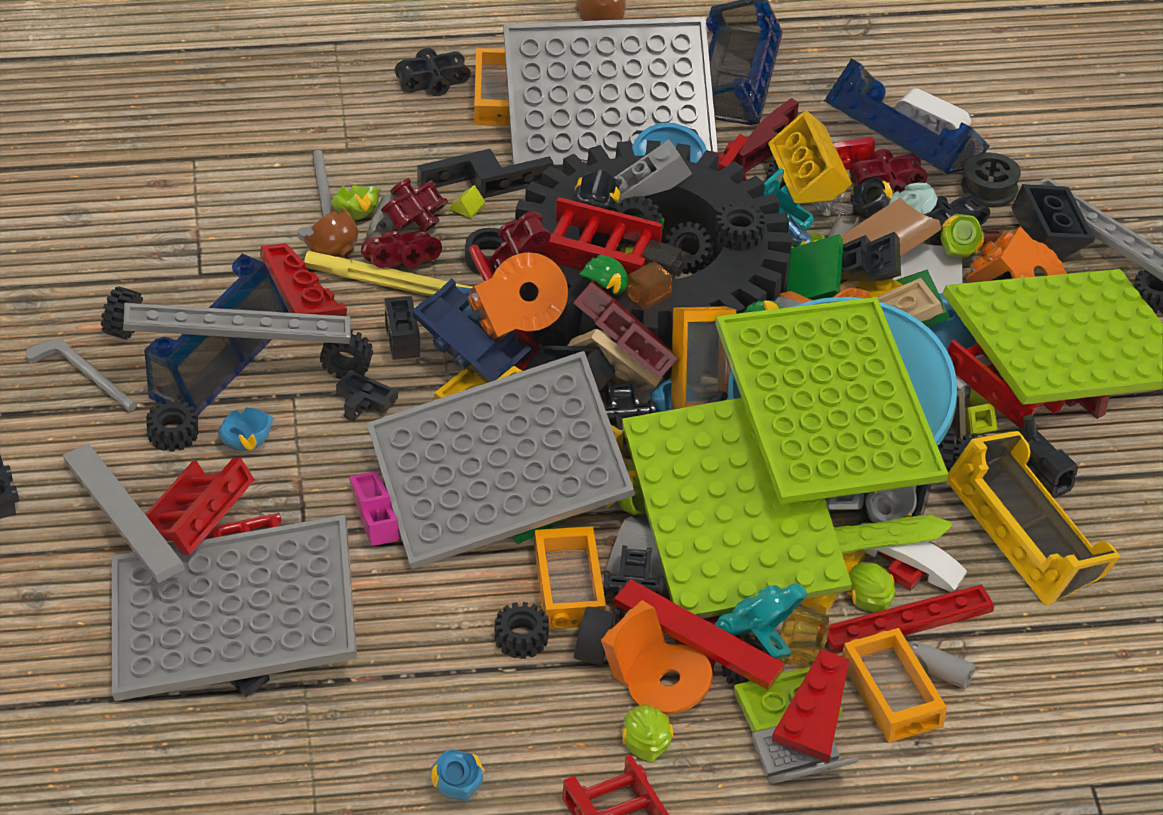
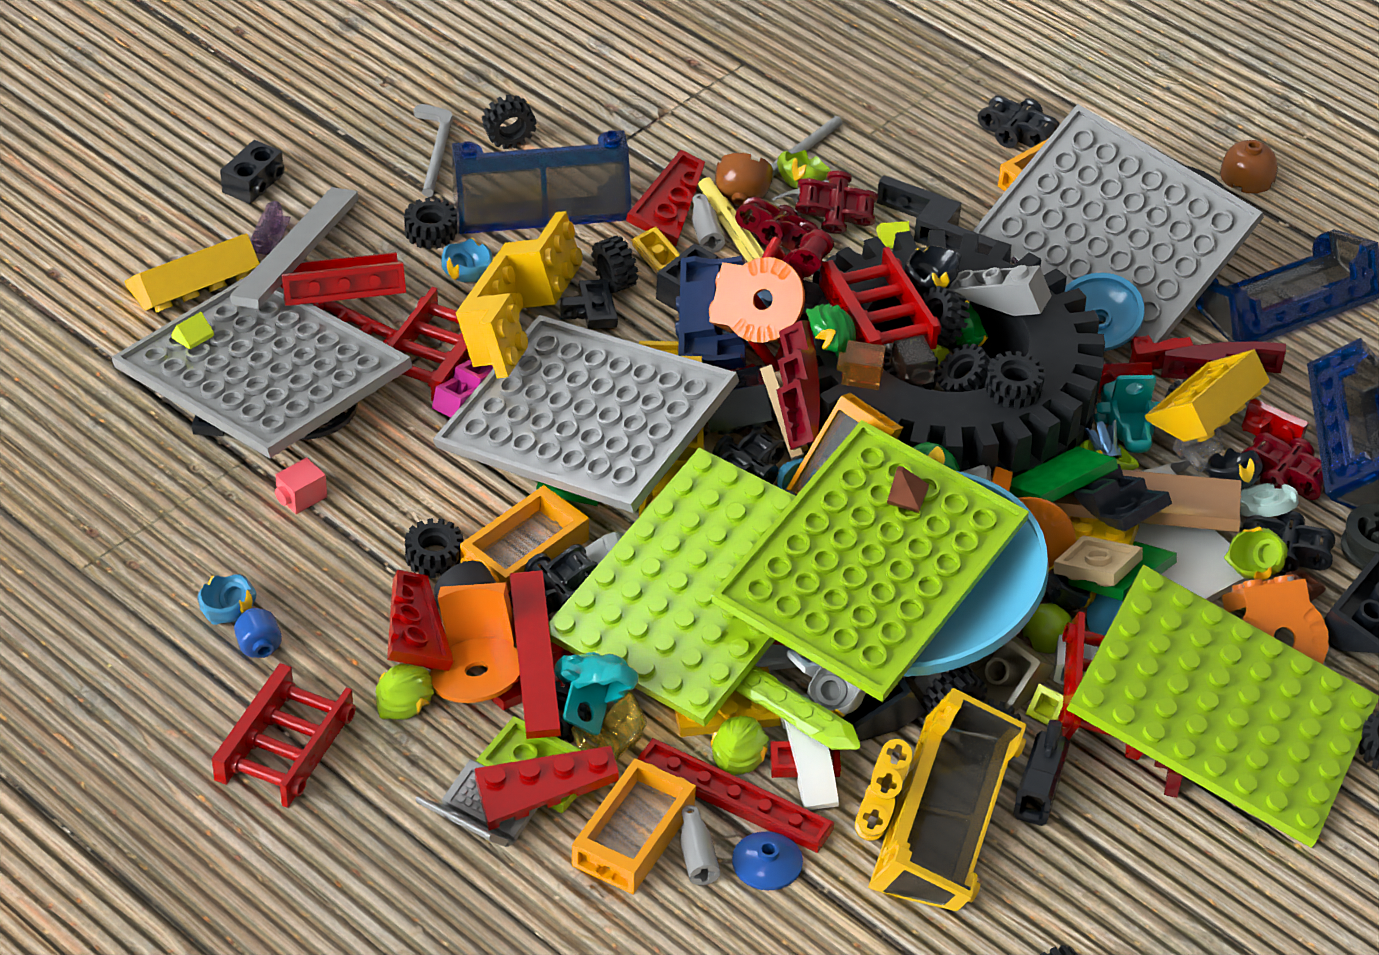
camera: 50 degrees right, 0 degrees up
(68, 520) = (269, 229): none -> clear purple hinge
(68, 590) = (193, 272): none -> yellow slope
(151, 625) = (193, 331): none -> neon yellow slope
(236, 323) = (542, 174): light grey tile -> none
(330, 483) = (418, 324): none -> red fence
(350, 284) = (707, 224): none -> light grey piece
(364, 450) = (517, 278): none -> yellow bracket
(368, 325) = (655, 248): none -> yellow brick
(379, 665) = (301, 485): none -> coral brick
(508, 778) = (256, 632): none -> blue head
(595, 682) = (416, 625): none -> red wing
(803, 338) = (907, 490): none -> copper slope
(977, 640) = (764, 870): none -> blue dish
(996, 545) = (889, 777): none -> yellow axle

